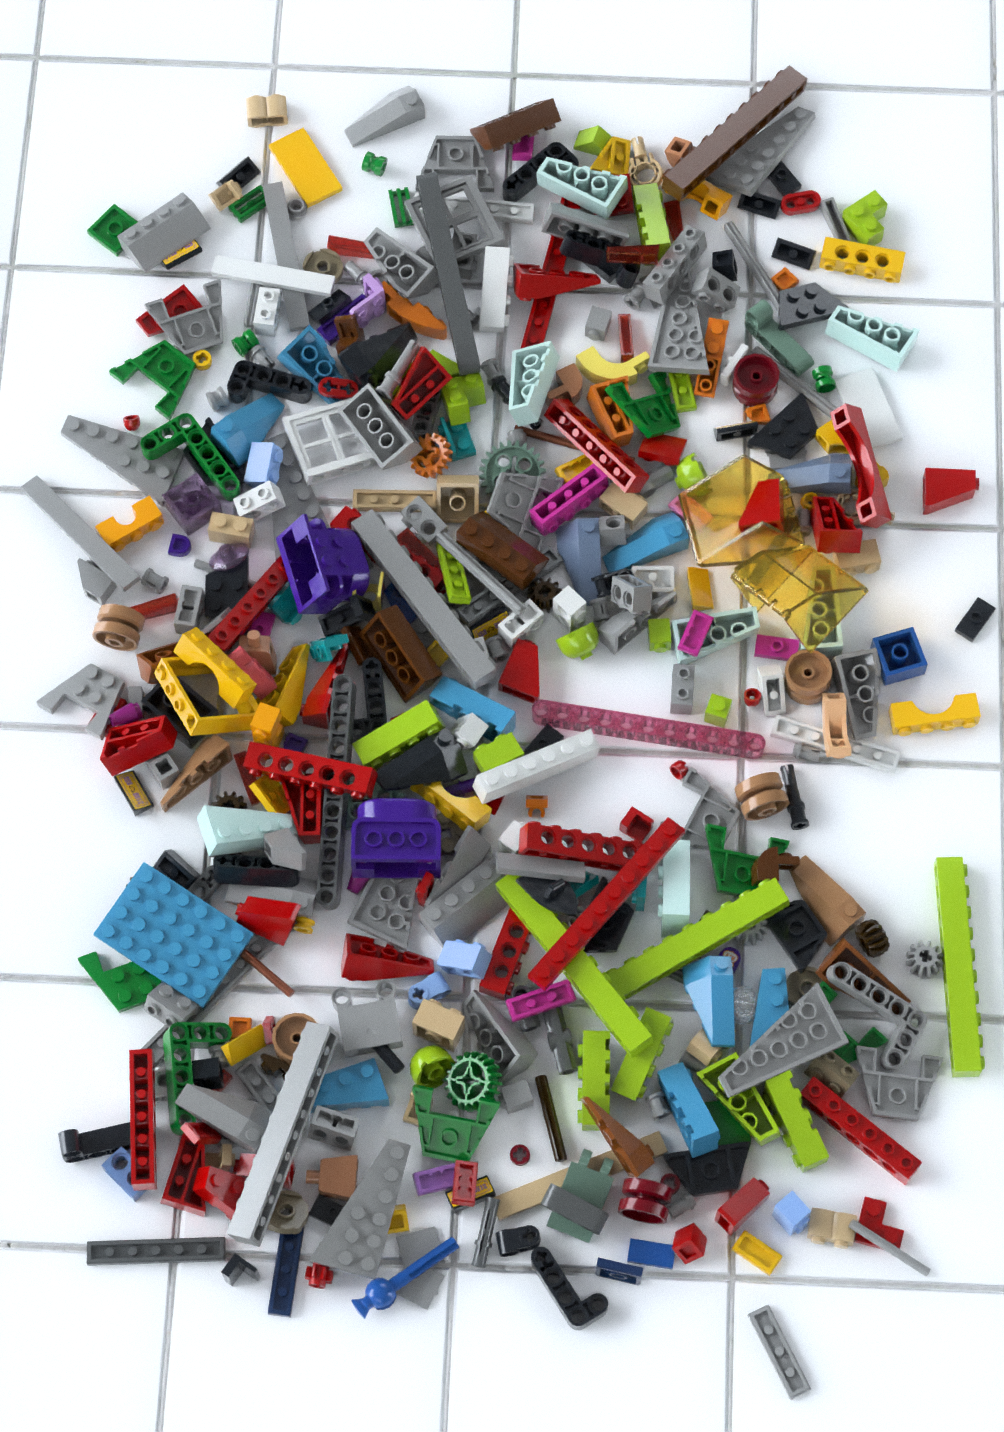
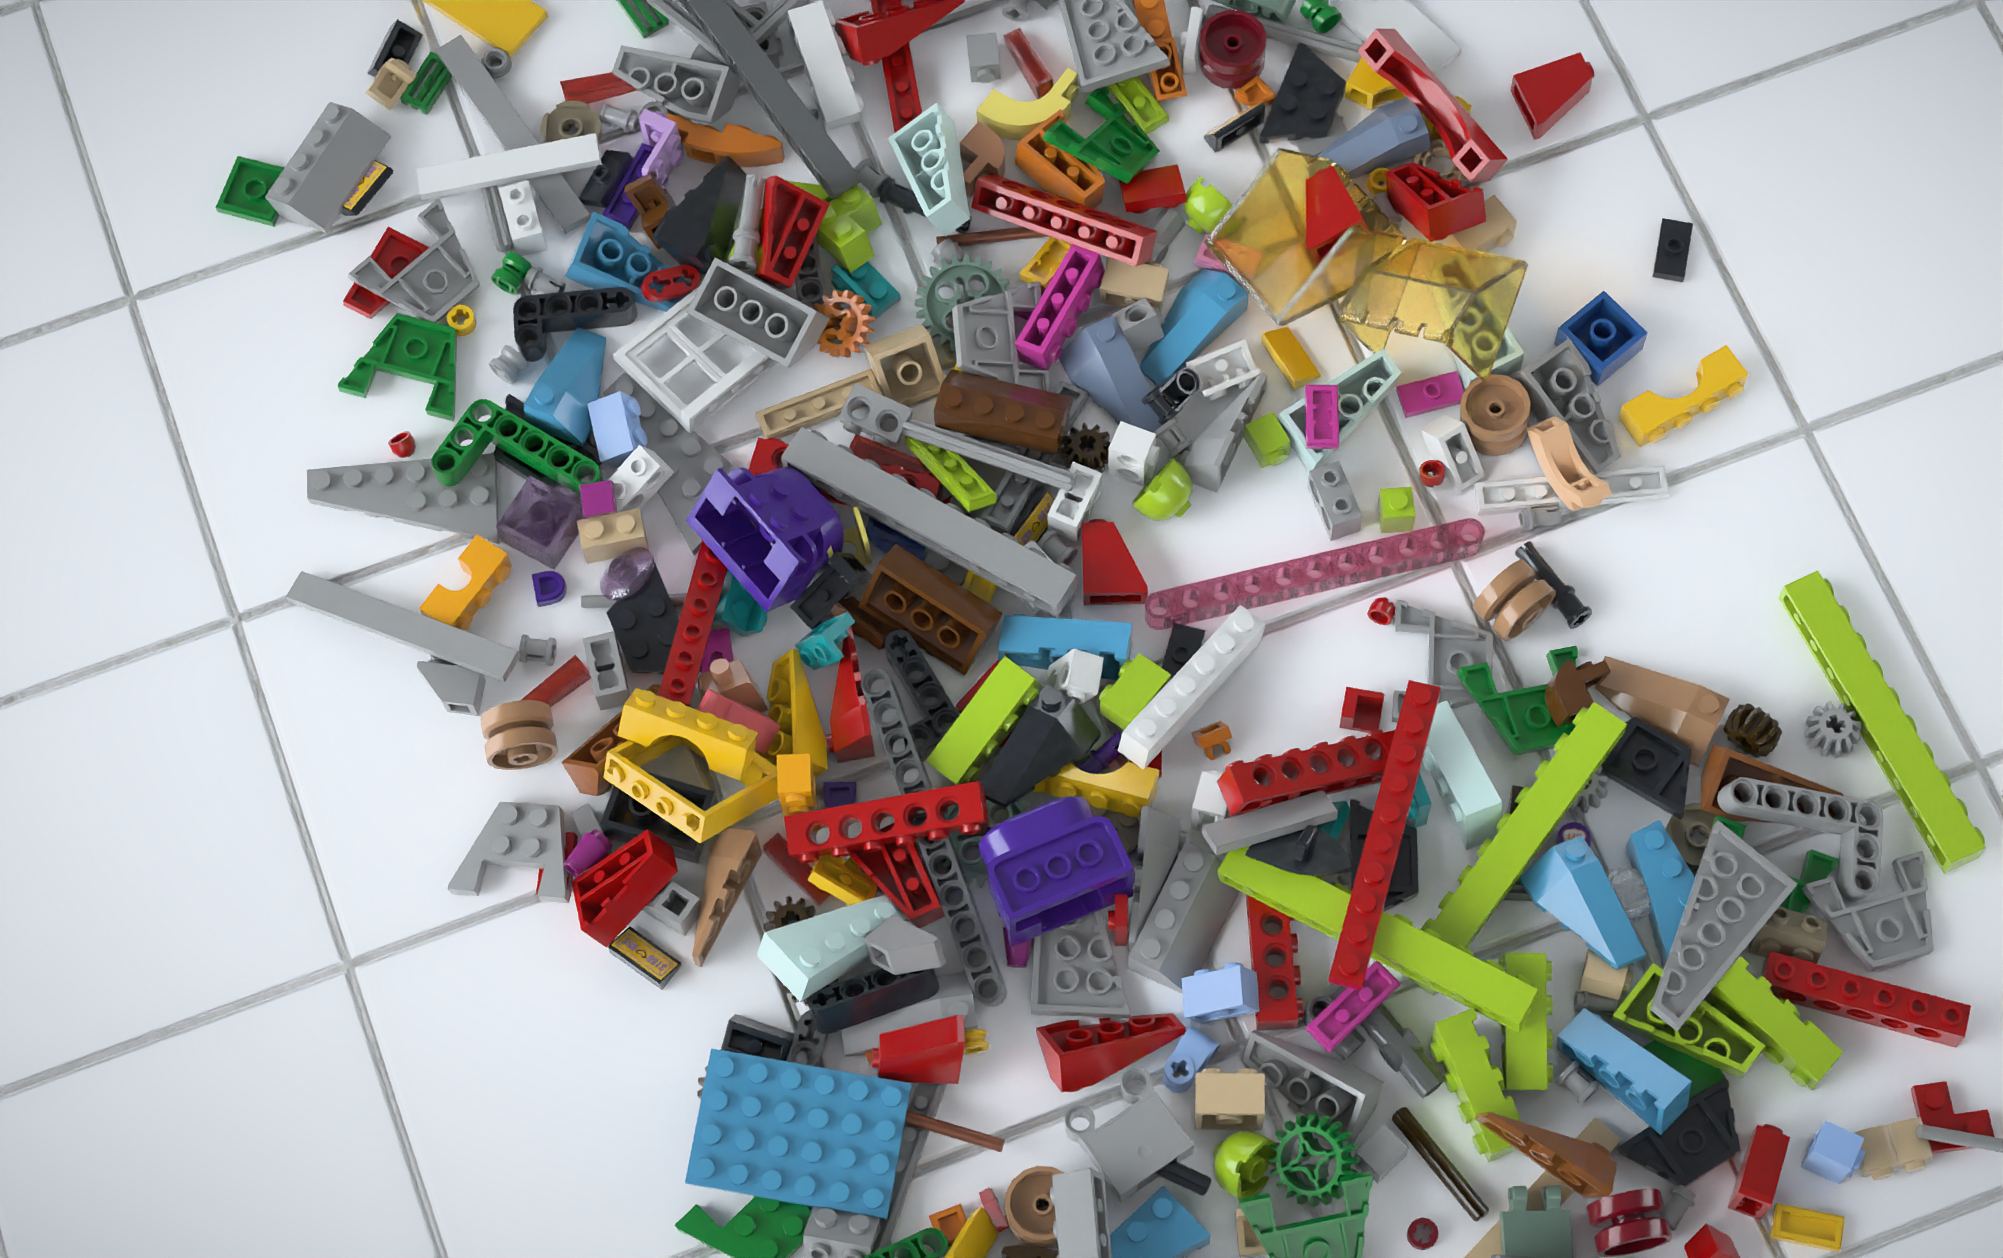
camera: 20 degrees left, 0 degrees up
(215, 621) = (652, 669): light grey piece -> none
(230, 503) = (598, 499): none -> magenta tile
(631, 593) = (1210, 398): light grey brick -> none
(668, 1176) = (1654, 1179): dark red bush -> none

